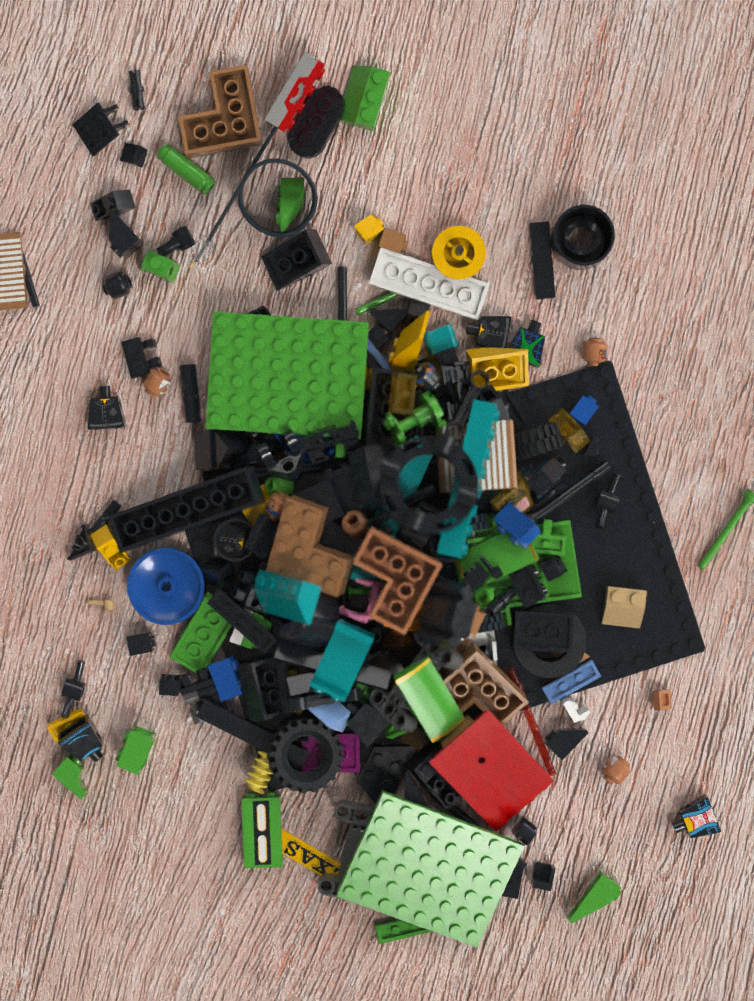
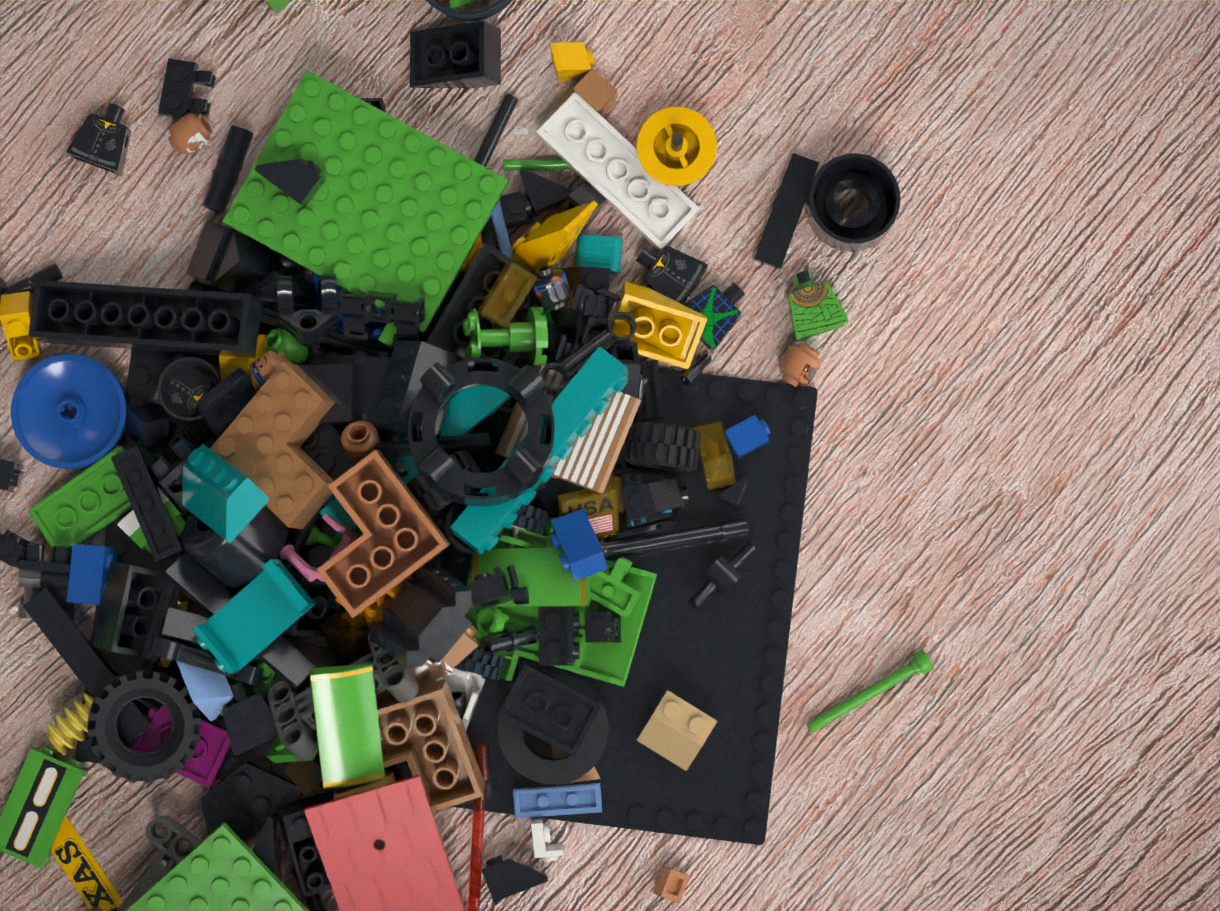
camera: 20 degrees right, 5 degrees down
(238, 383) = (293, 178): none -> black slope
(532, 384) = (695, 370): none -> black pin
(586, 312) = (814, 308): none -> bright green torso

